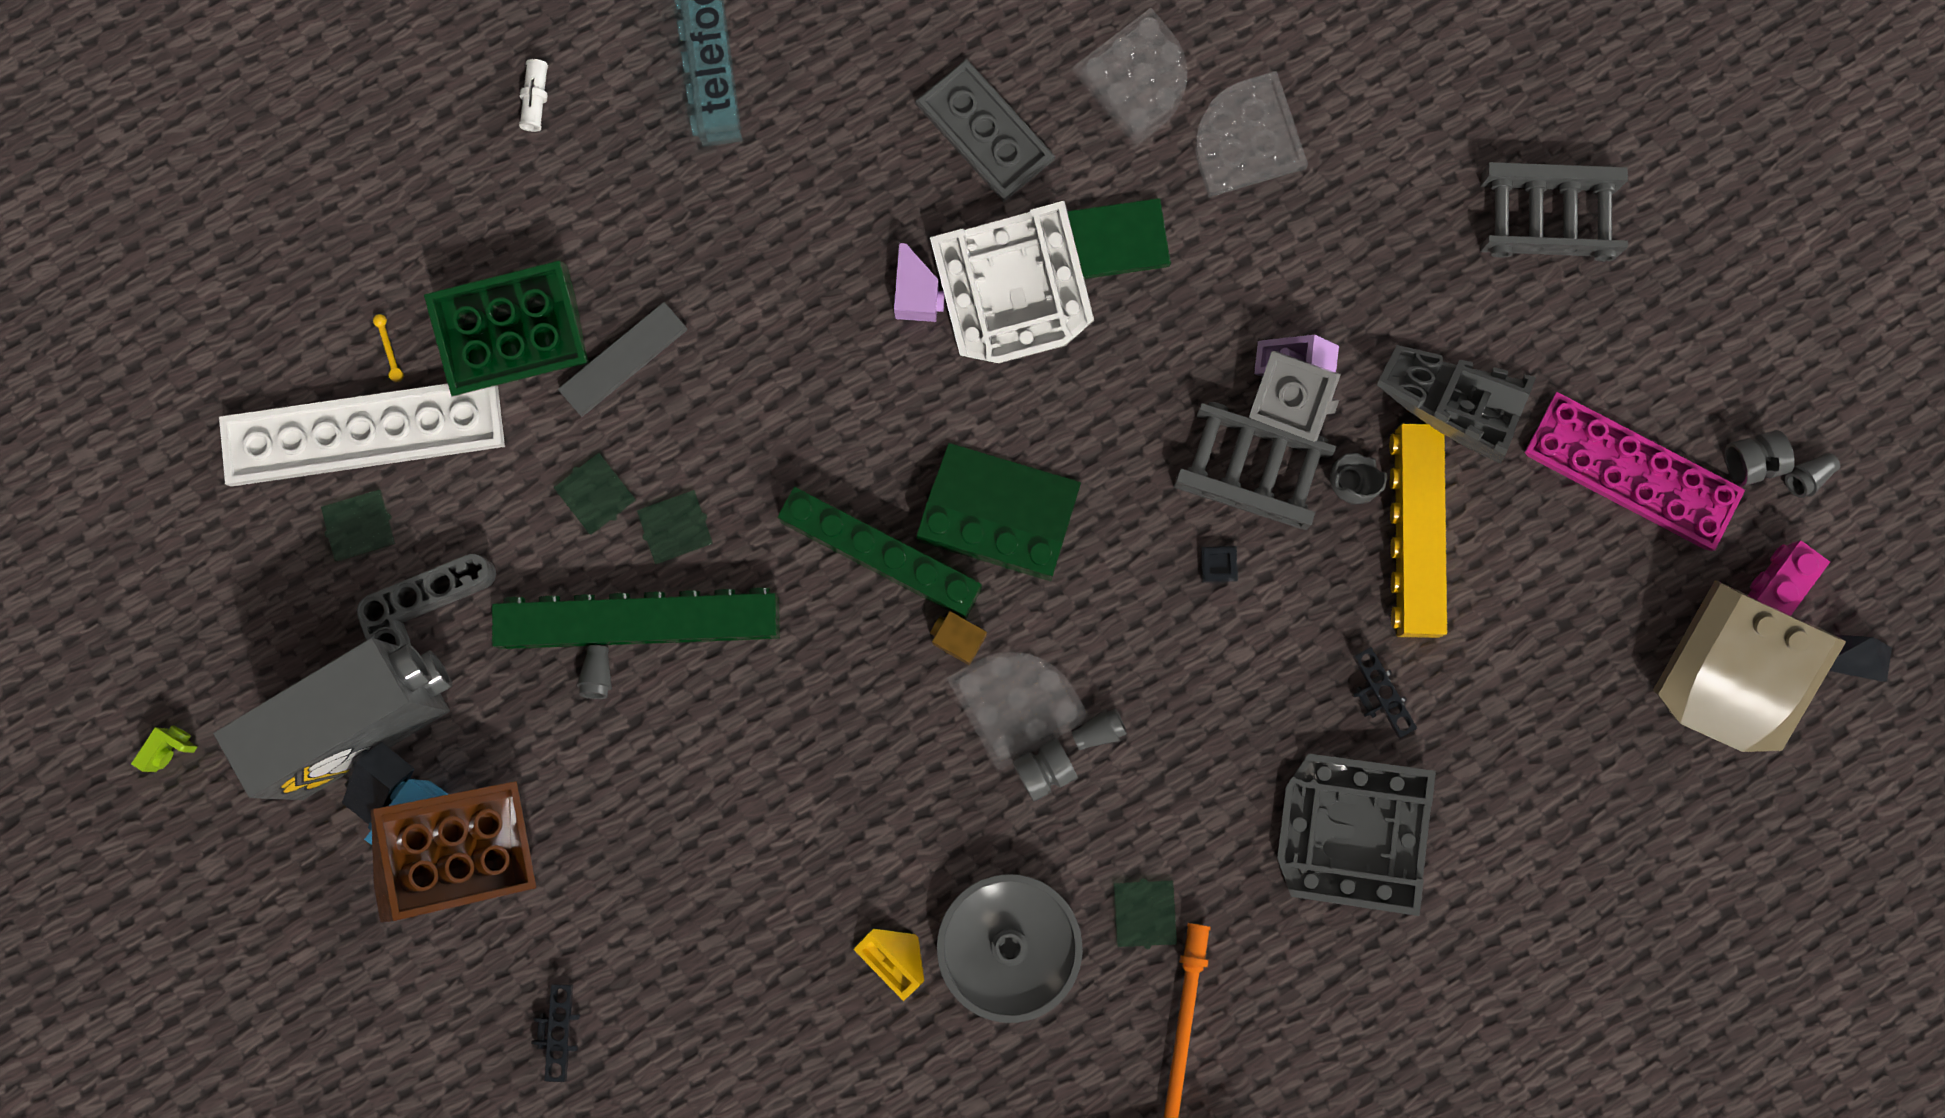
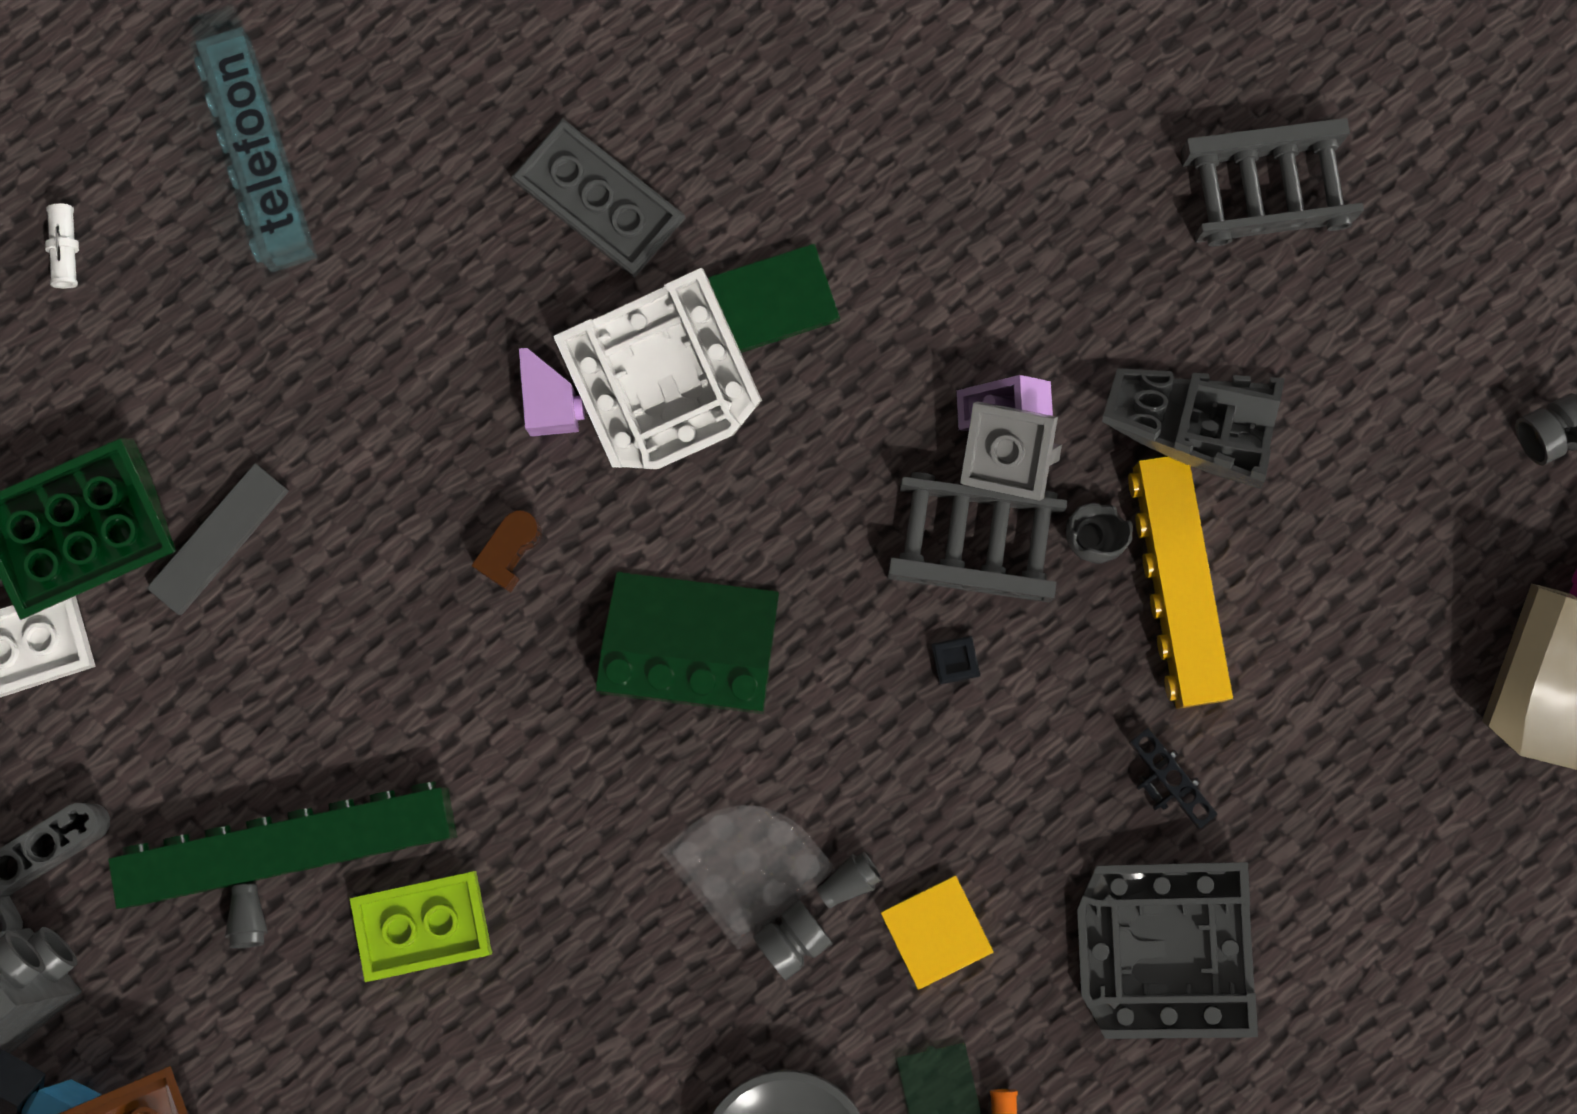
camera: 10 degrees left, 0 degrees up
(594, 494) = (211, 704): clear green piece -> none
(675, 527) = (312, 727): clear green piece -> none
(738, 705) = (420, 926): none -> lime plate
(860, 406) = (506, 547): none -> reddish brown leg
(880, 553) = (556, 717): dark green brick -> none
(958, 637) = (664, 800): pearl gold brick -> none
(1137, 76) = (764, 105): clear plate -> none
(1165, 785) = (937, 932): none -> yellow tile
(1248, 136) = (904, 154): clear plate -> none
(1634, 472) = (1416, 469): dark pink plate -> none

